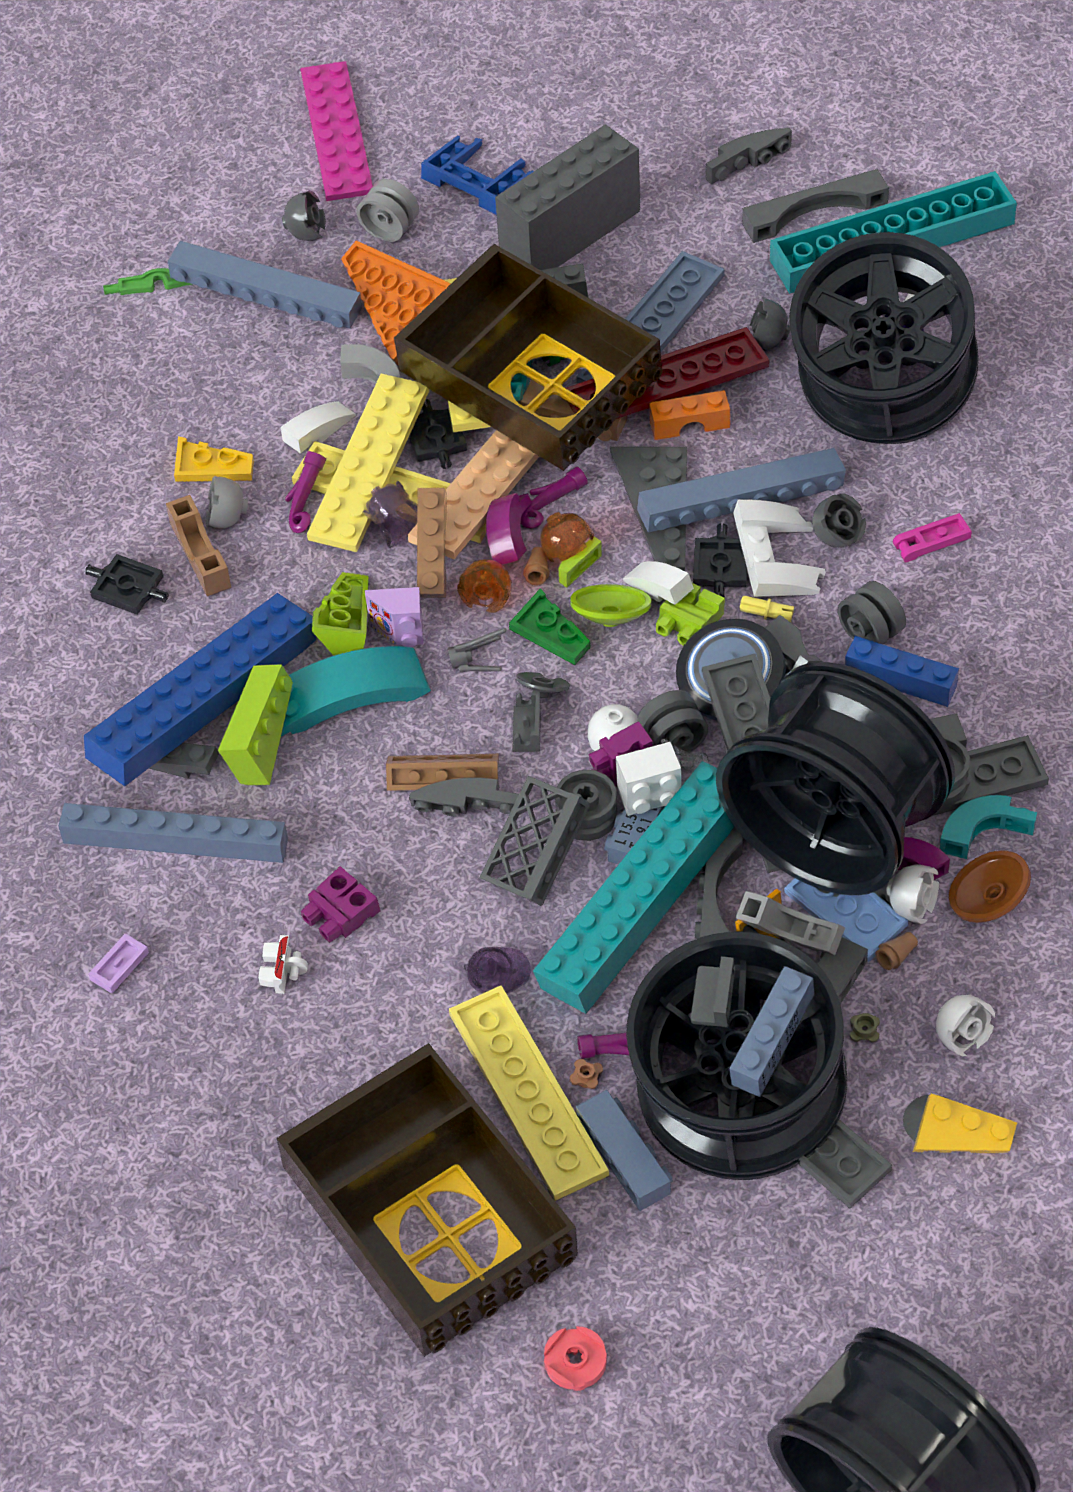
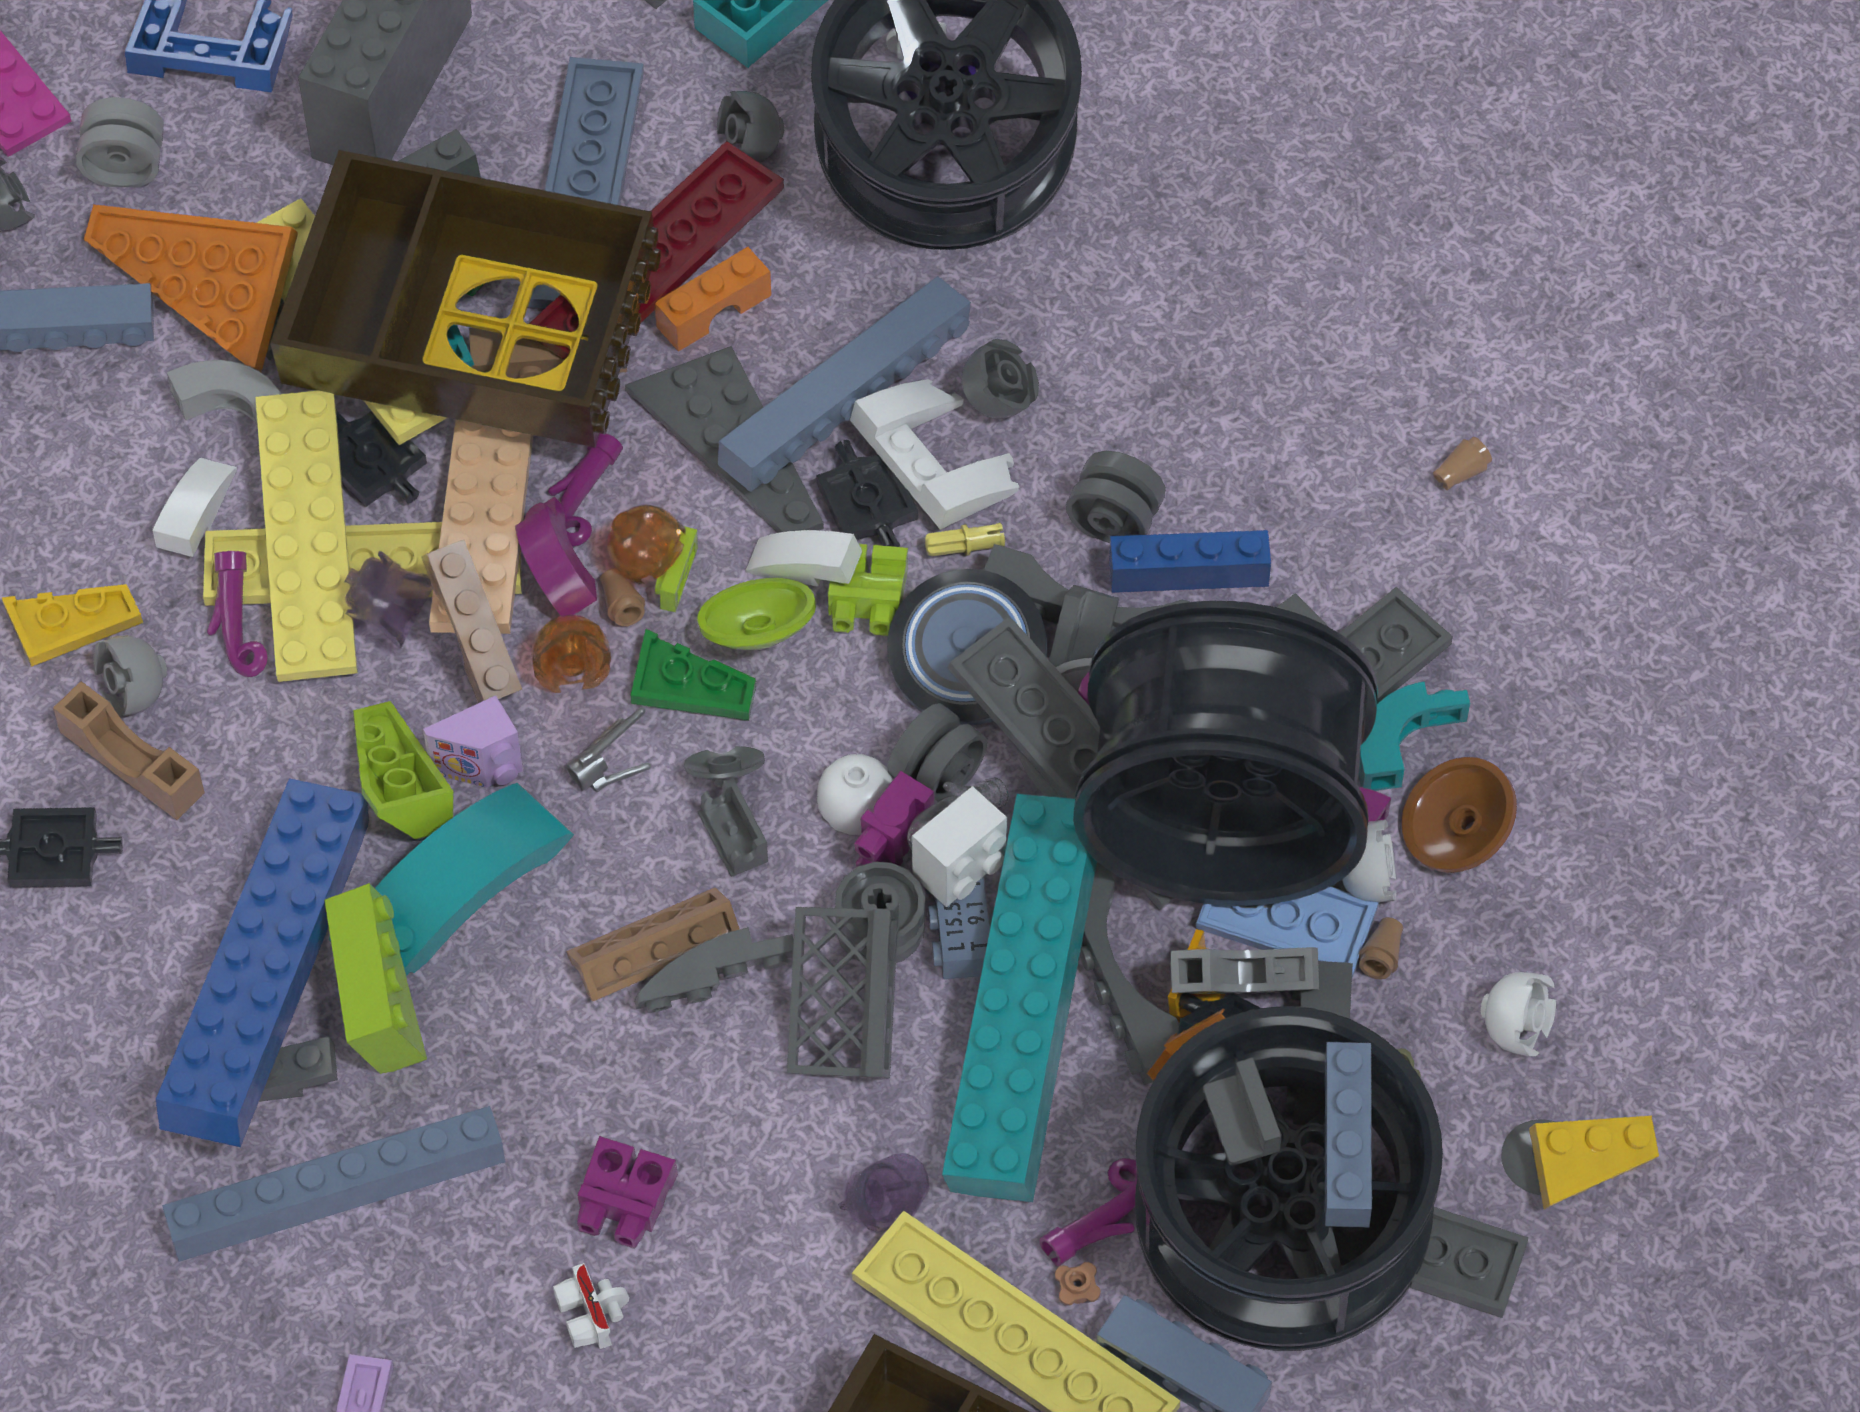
camera: 30 degrees left, 5 degrees up
(932, 537) = (1127, 354): dark pink plate -> none

